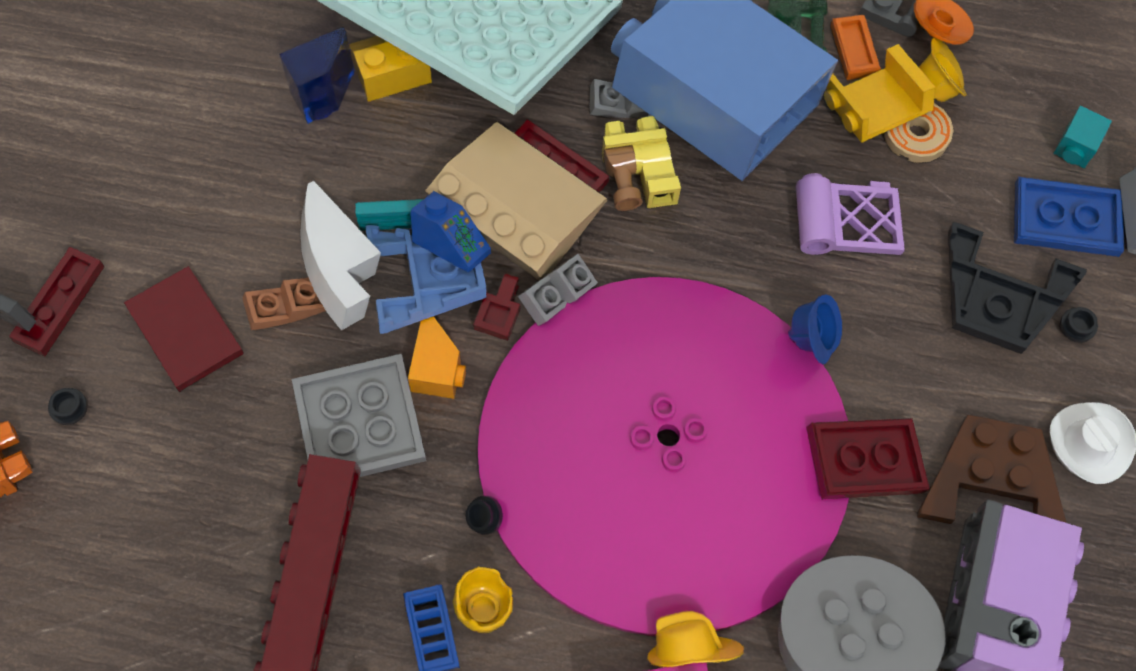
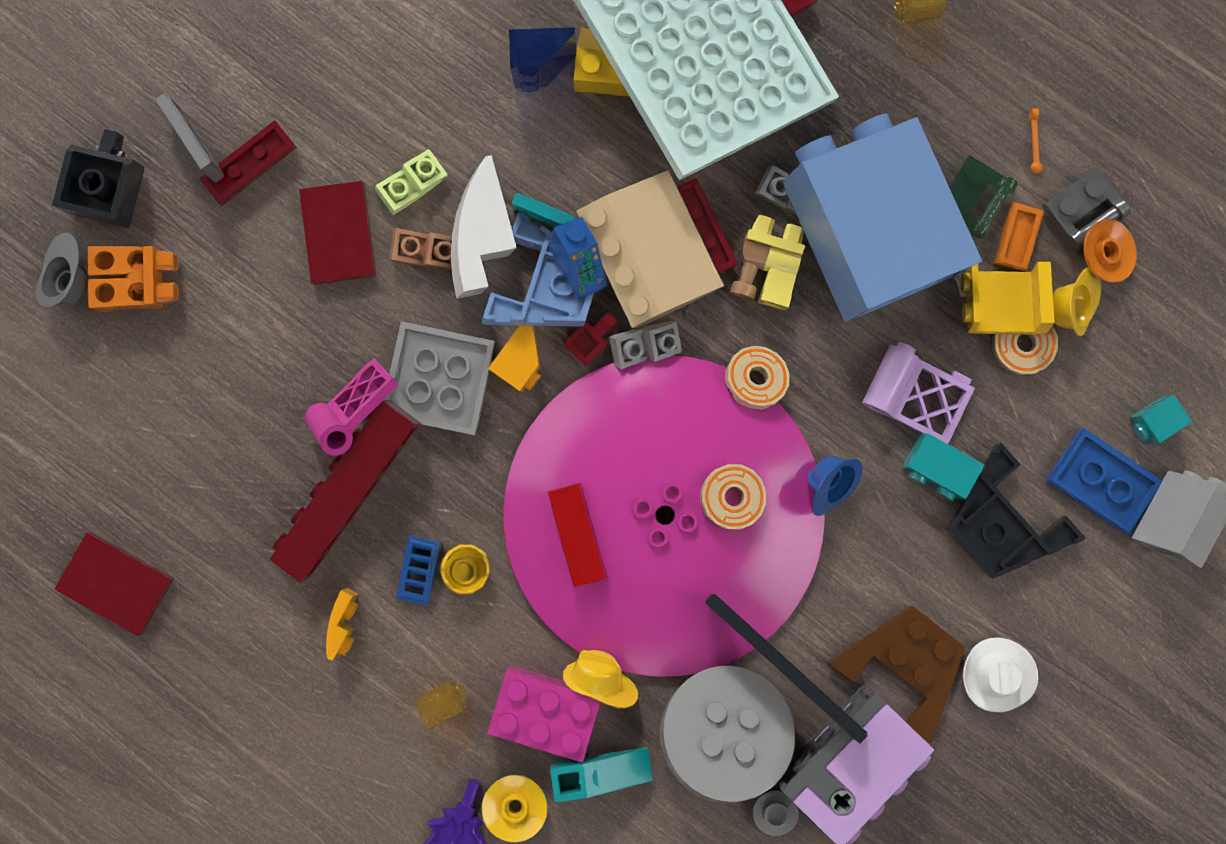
camera: 30 degrees right, 20 degrees up
(67, 406) = (223, 258): black plate -> none
(242, 247) = (411, 182): none -> yellowish green slope
(269, 506) = (334, 422): none -> dark pink piece
(484, 515) = (497, 502): black plate -> none
(588, 498) = (577, 535): none -> red tile
(690, 255) = (769, 365): none -> tan tile
(742, 369) = (752, 496): none -> tan tile
(867, 458) = (813, 603): dark red tile -> none
(884, 518) = (787, 668): none -> black tile
(912, 269) = (942, 467): none -> teal brick
(1079, 324) = (1050, 577): black plate -> none

